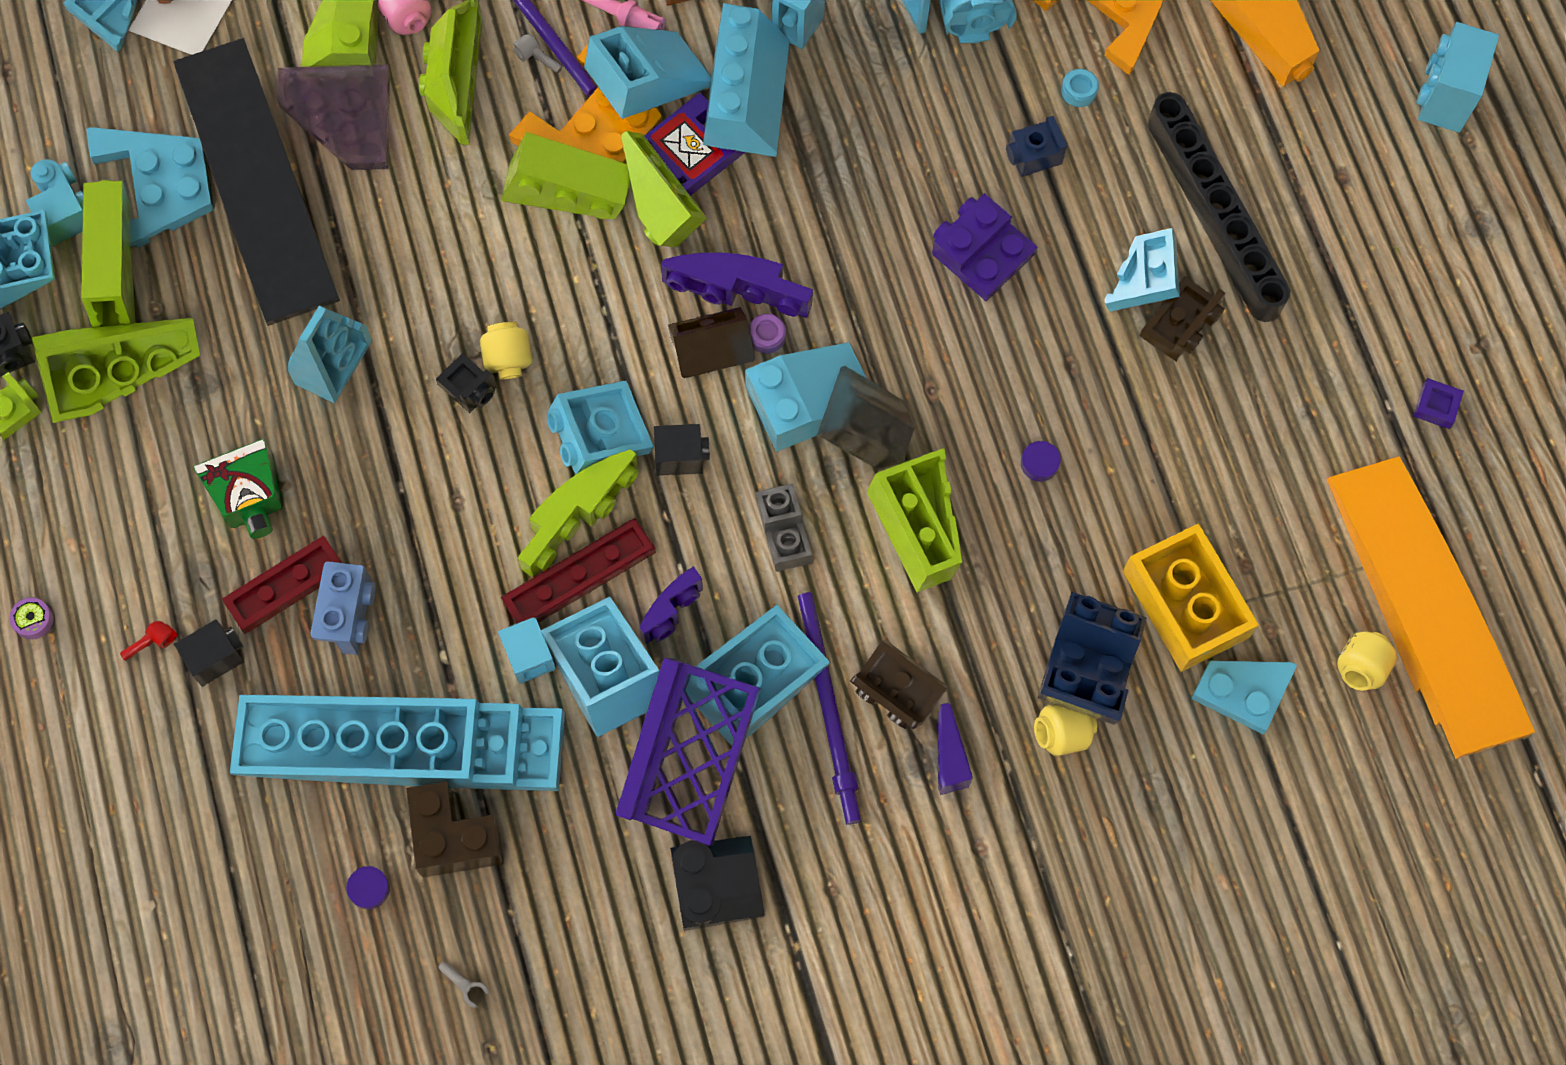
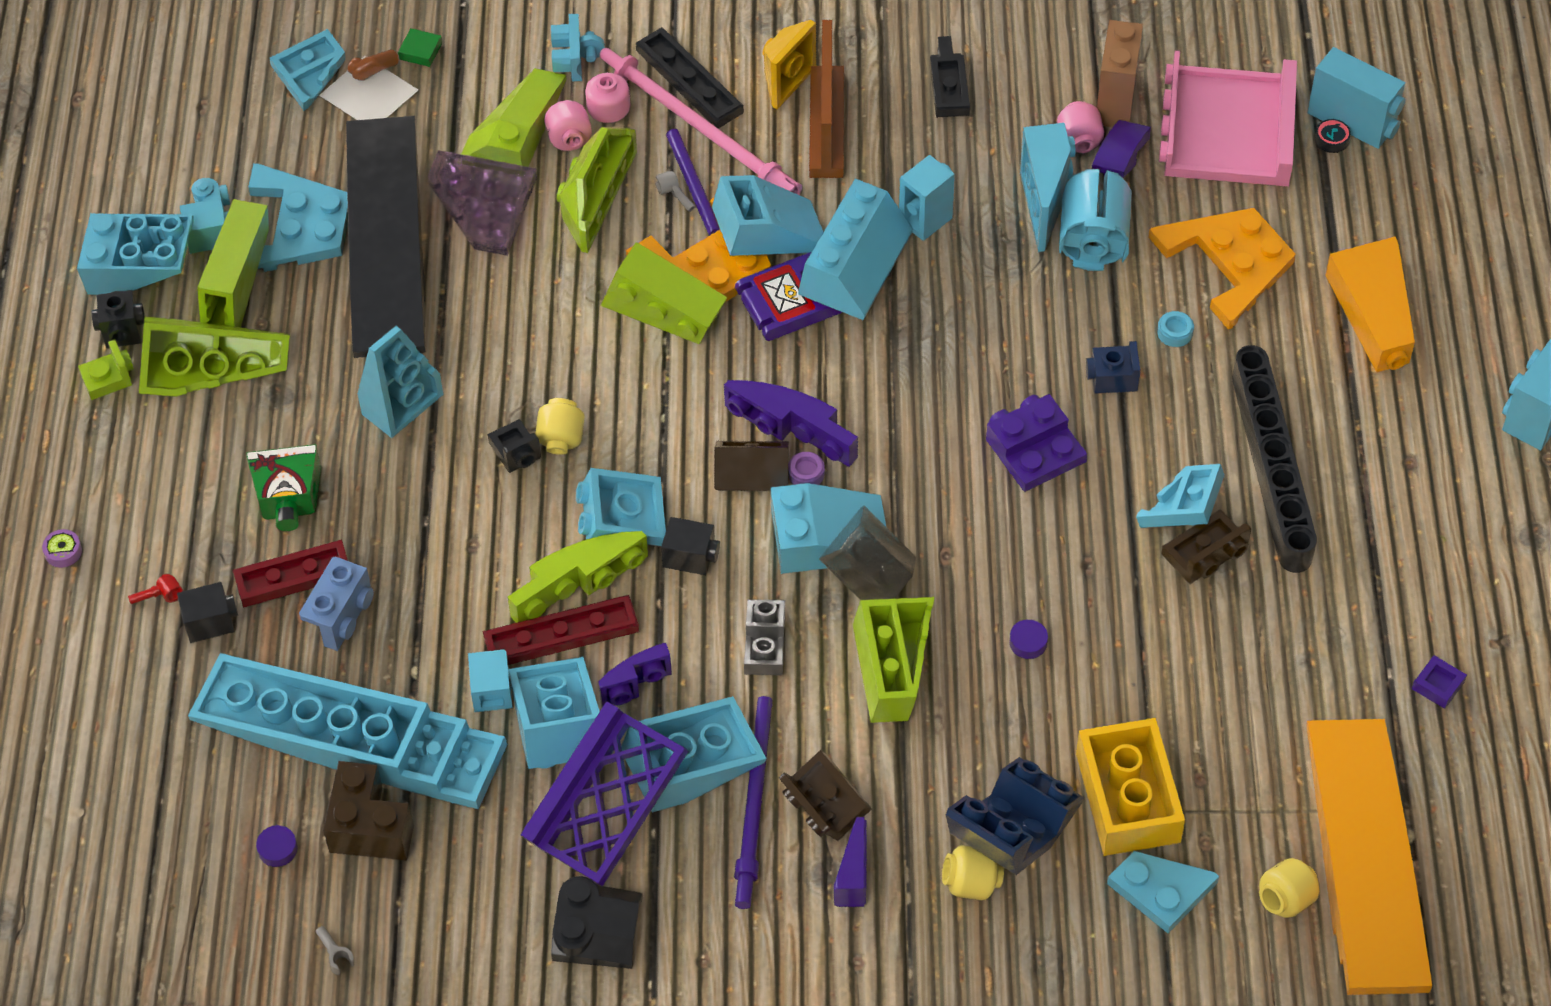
camera: 20 degrees right, 15 degrees down
(658, 195) = (742, 328): lime slope -> none

